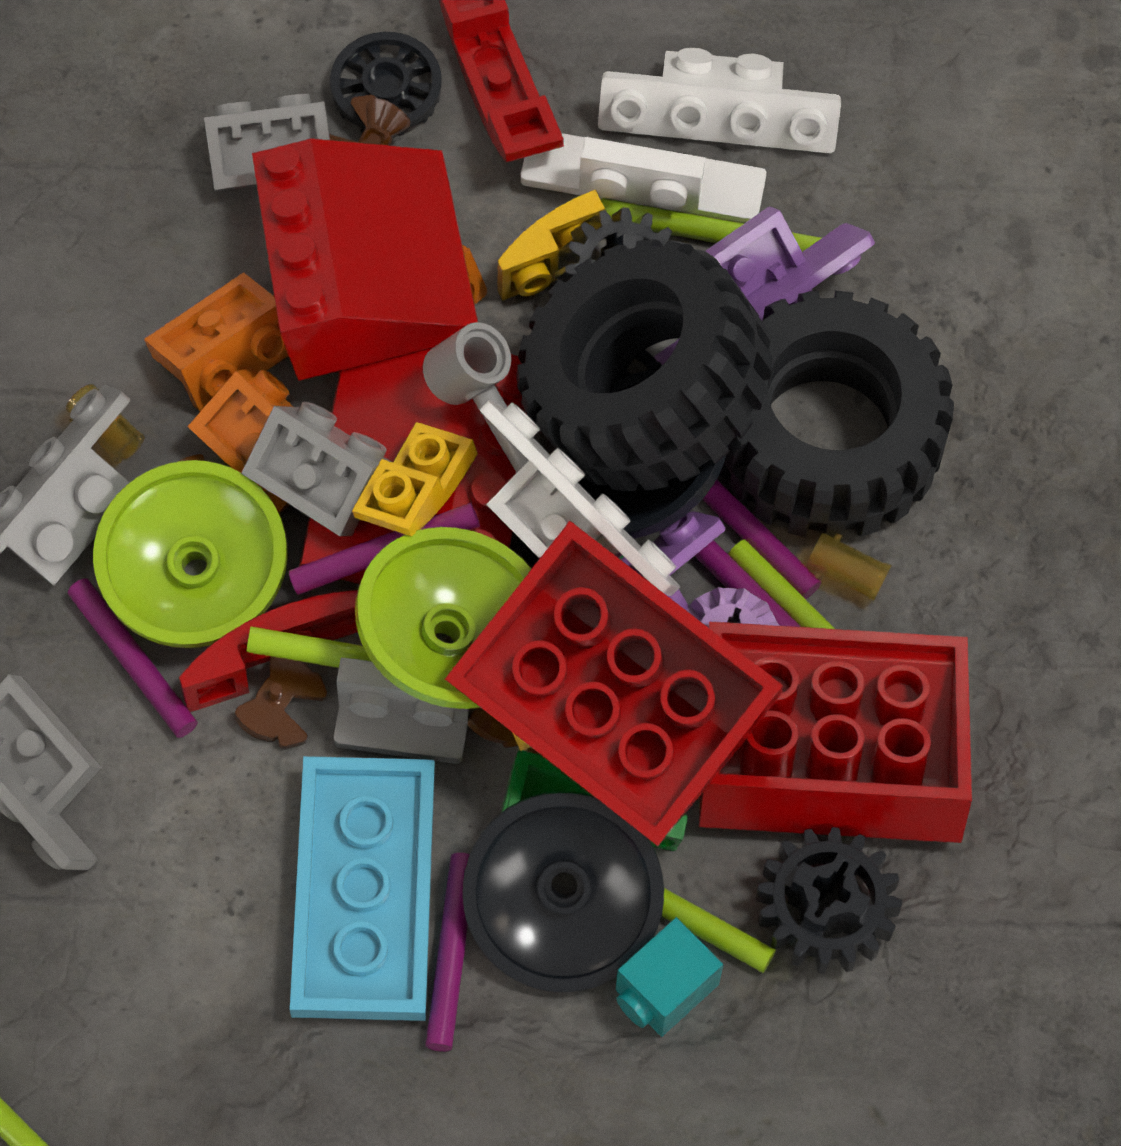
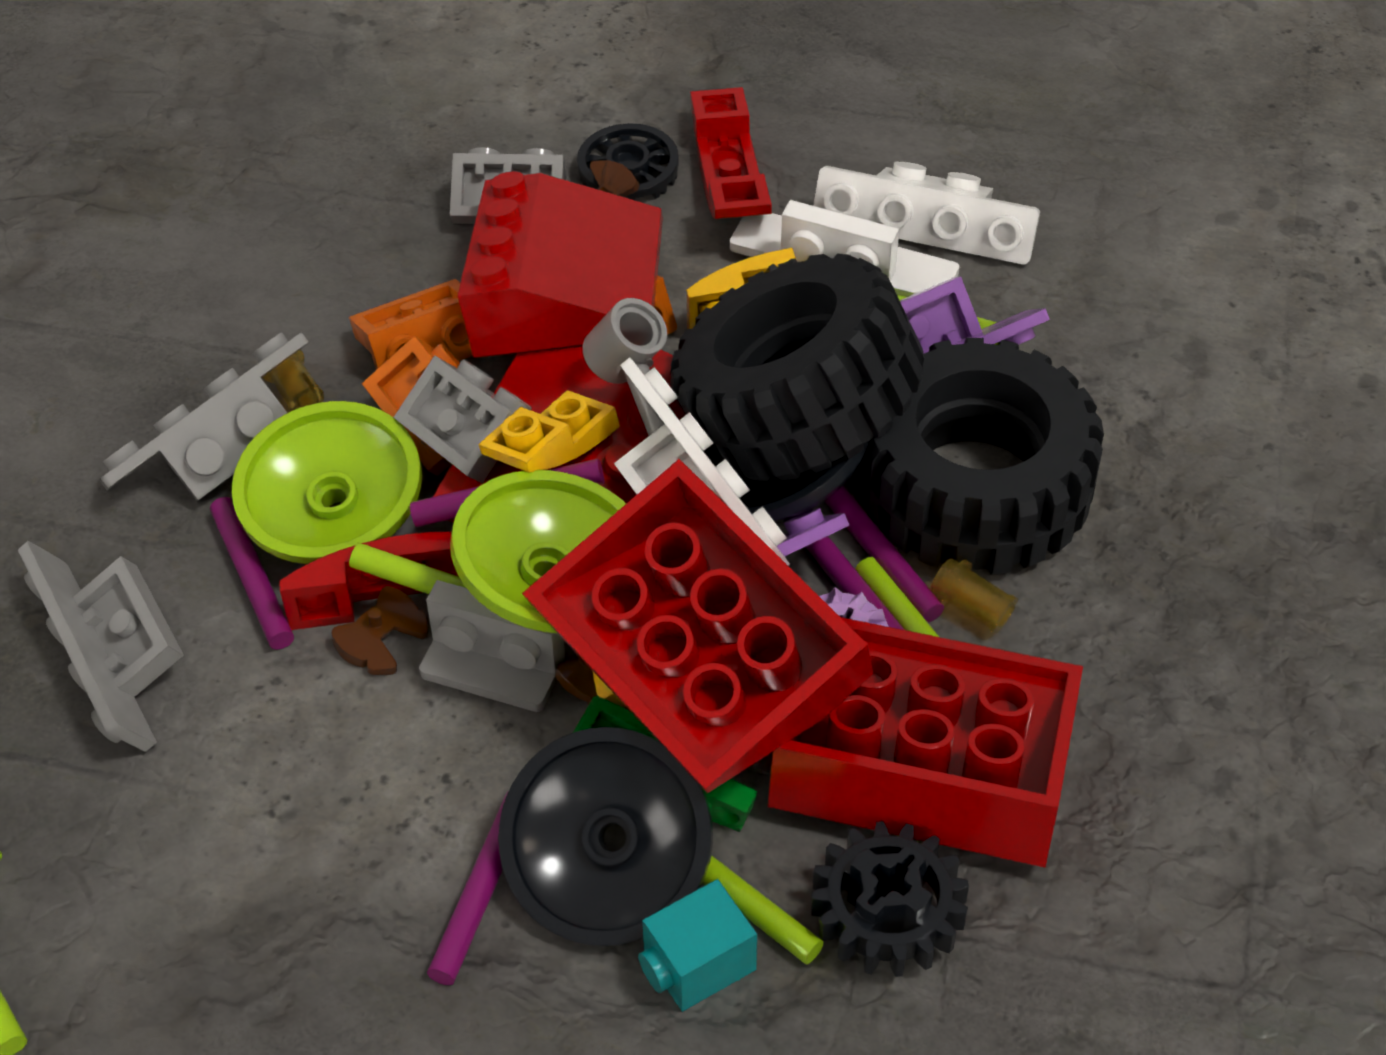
camera: 15 degrees right, 15 degrees down
(363, 889) = (404, 812): medium azure plate -> none

